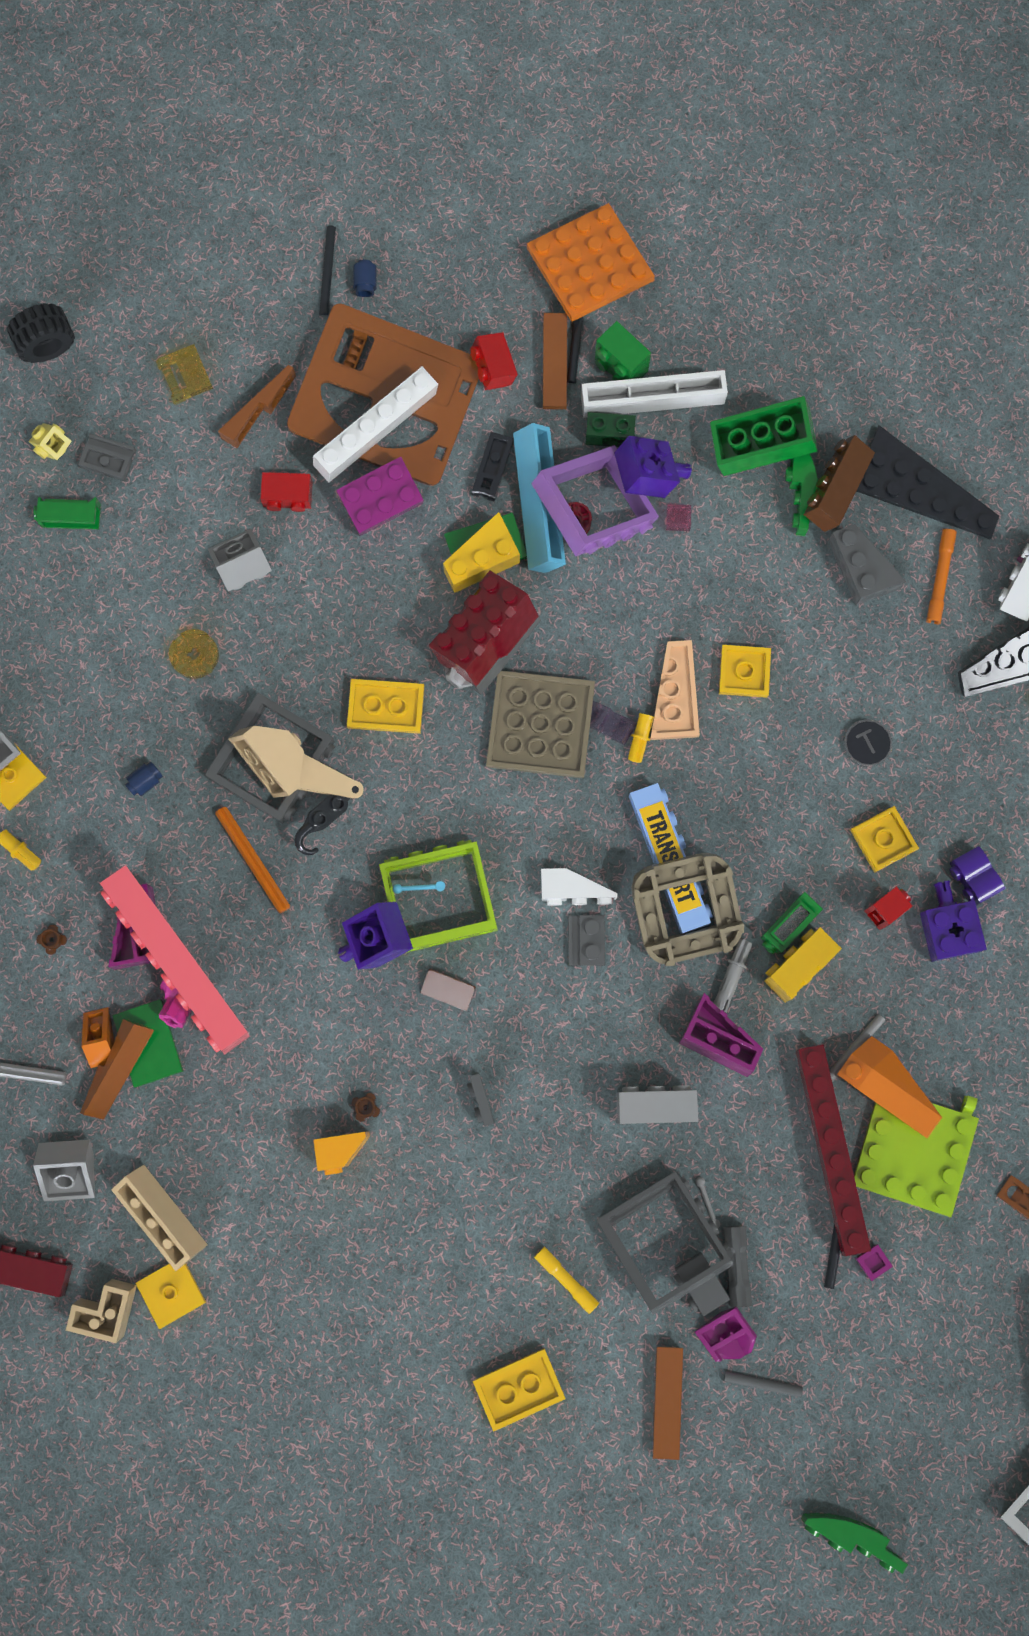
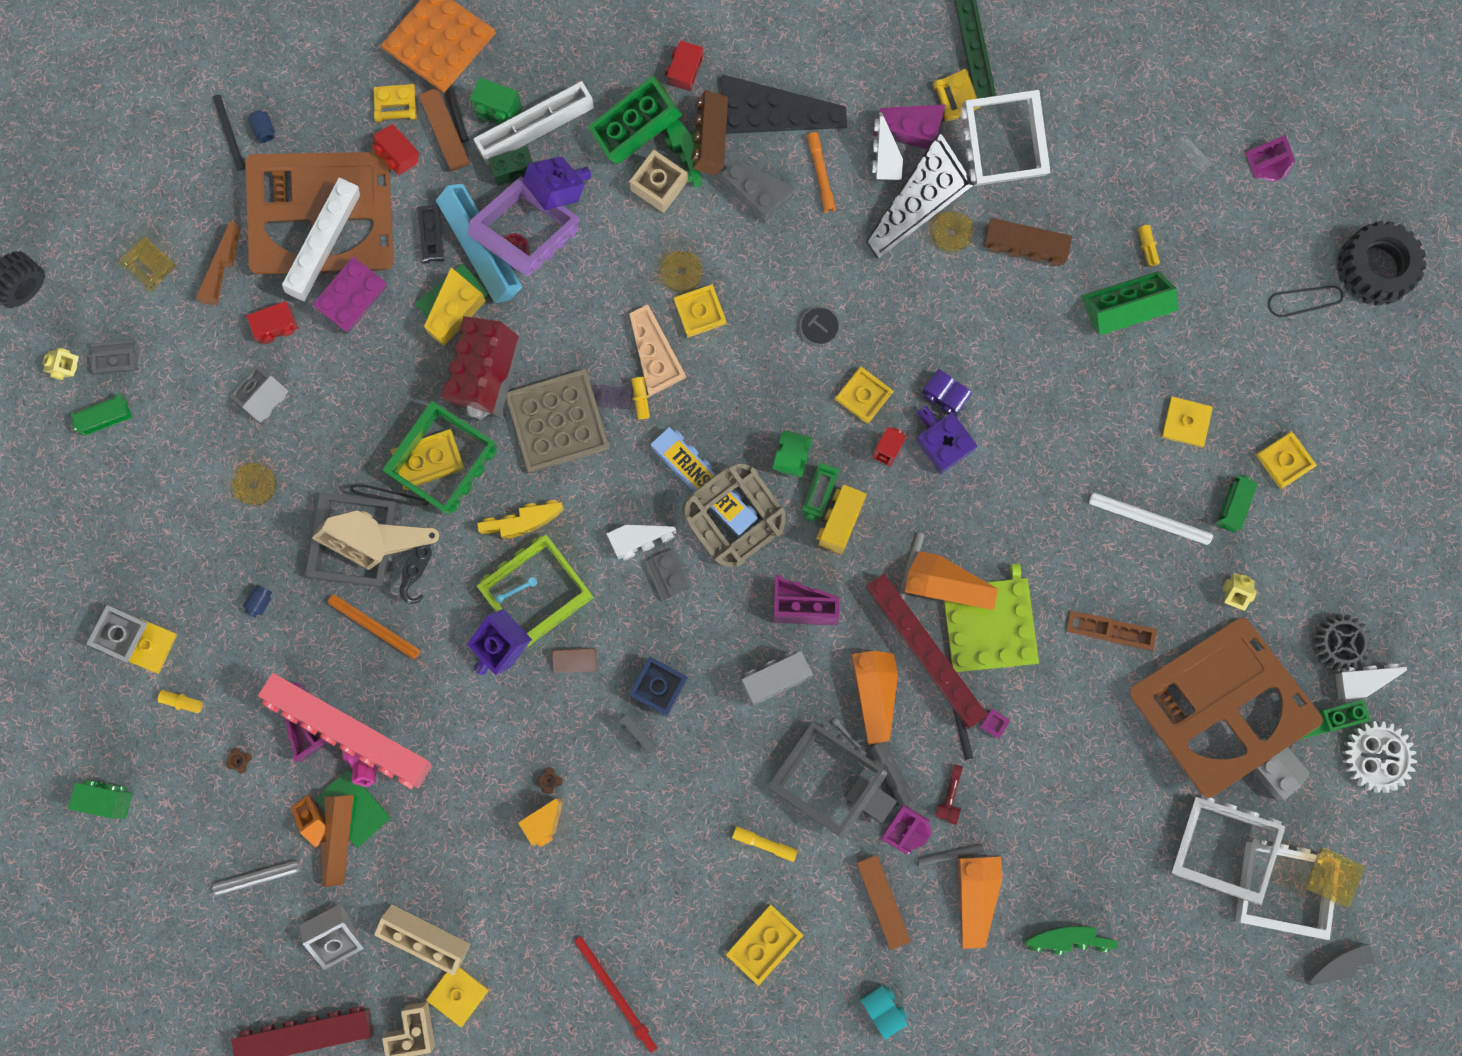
camera: 25 degrees left, 0 degrees up
(325, 730) = (386, 498): none -> black piece
(347, 1420) = (640, 1030): none -> red bar
(382, 677) = (412, 440): none -> green window
(467, 817) = (530, 519): none -> yellow slope
(518, 305) = (395, 97): none -> yellow plate
(525, 1058) = (658, 686): none -> dark blue brick
(616, 1521) = (883, 1011): none -> teal brick
(678, 517) = (596, 212): clear pink plate -> none
(732, 975) = (792, 550): light grey axle -> none
(749, 608) = (683, 260): none -> clear yellow plate
(760, 512) = (658, 181): none -> tan brick
(760, 1164) = (876, 688): none -> orange wedge
(776, 1439) = (978, 893): none -> orange wedge
(779, 869) = (792, 453): none -> green brick
(780, 1334) = (947, 810): none -> dark red brick
(842, 399) = (685, 65): none -> red brick

